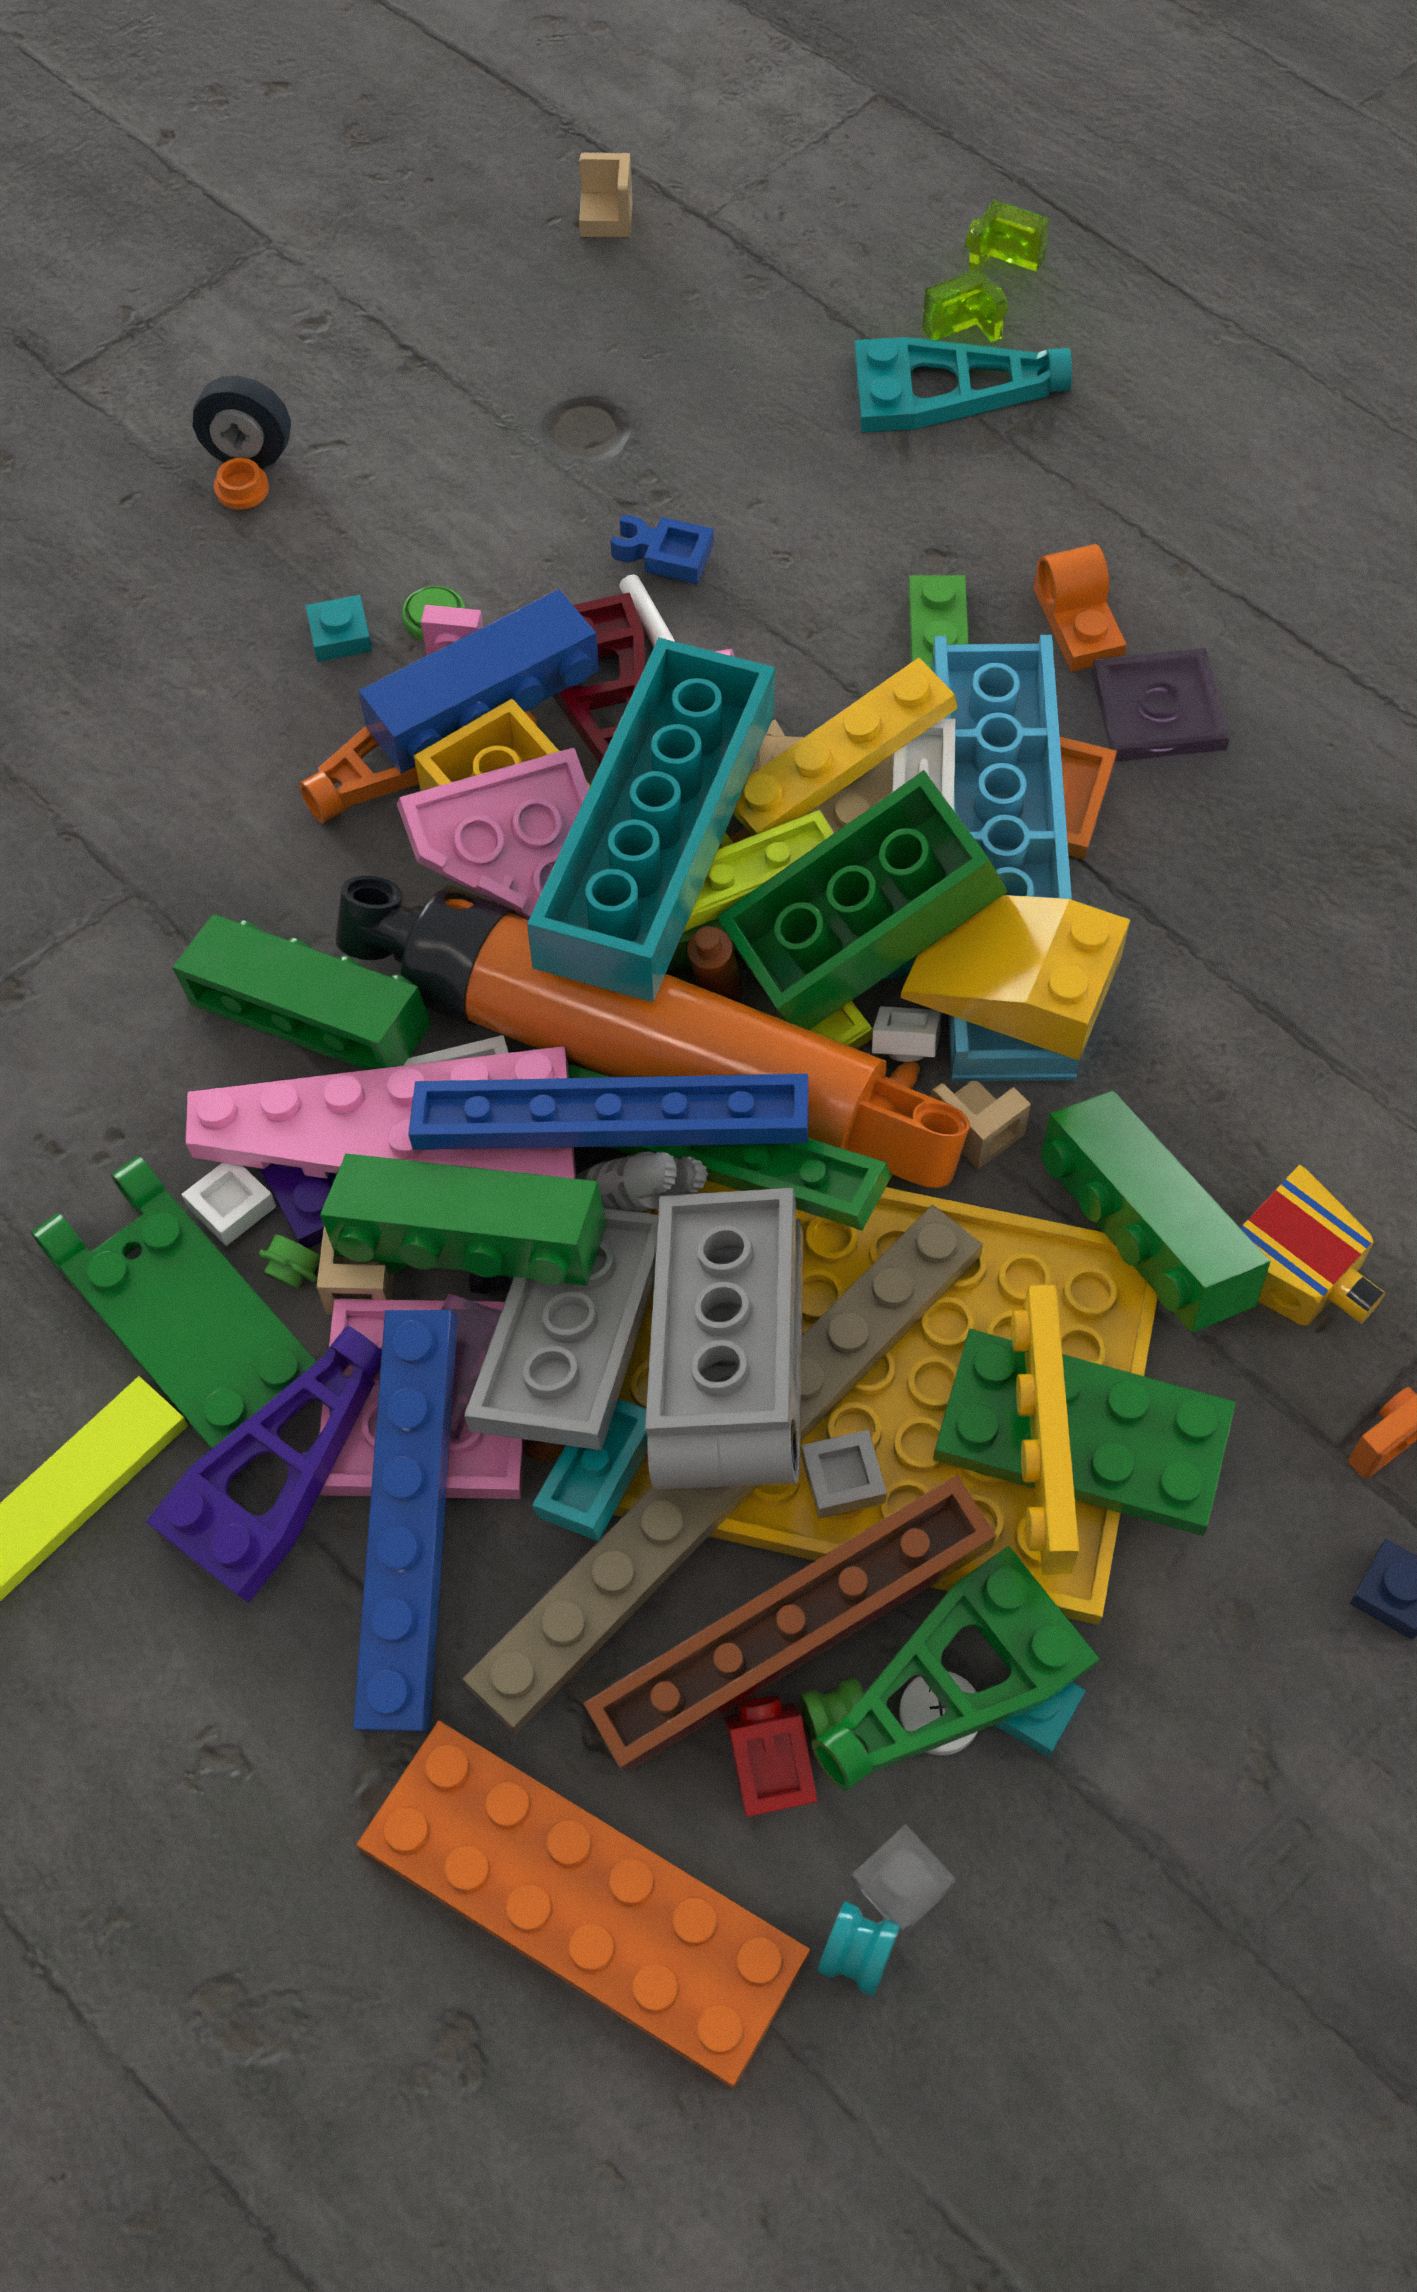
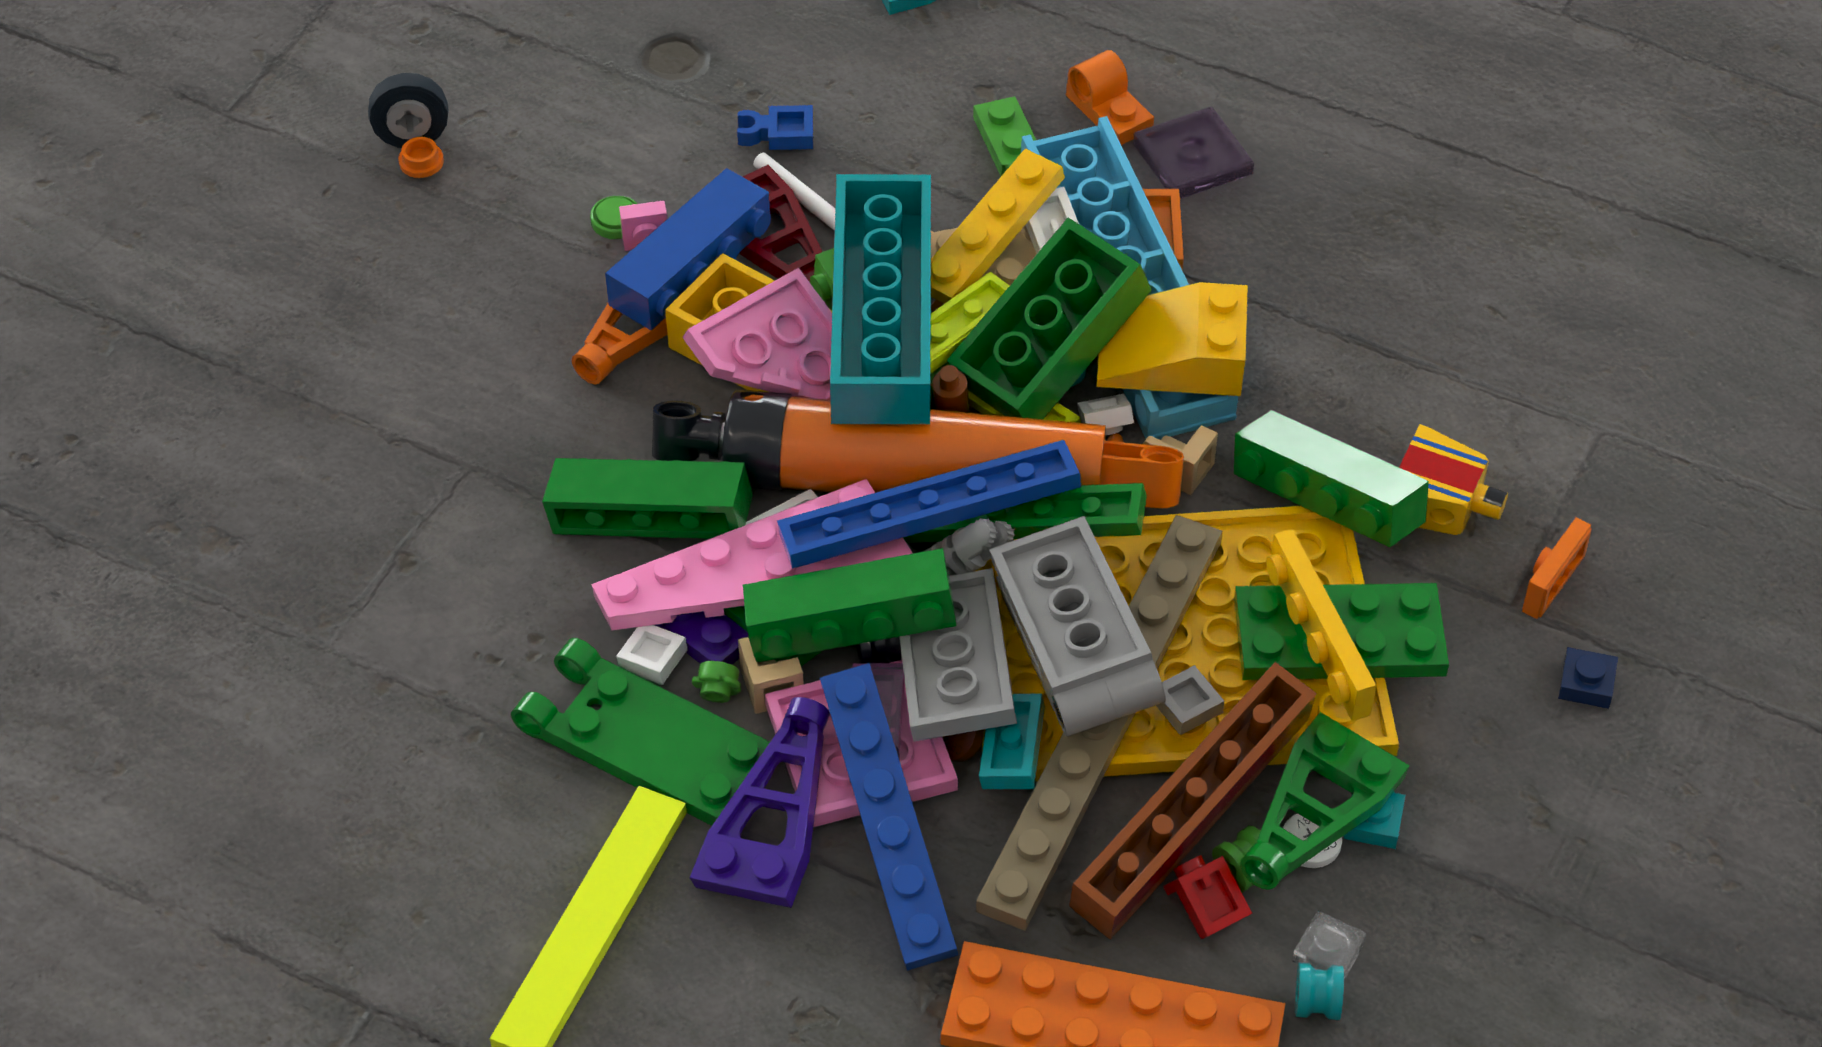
camera: 20 degrees left, 10 degrees down
(338, 628) = (546, 243): teal plate -> none

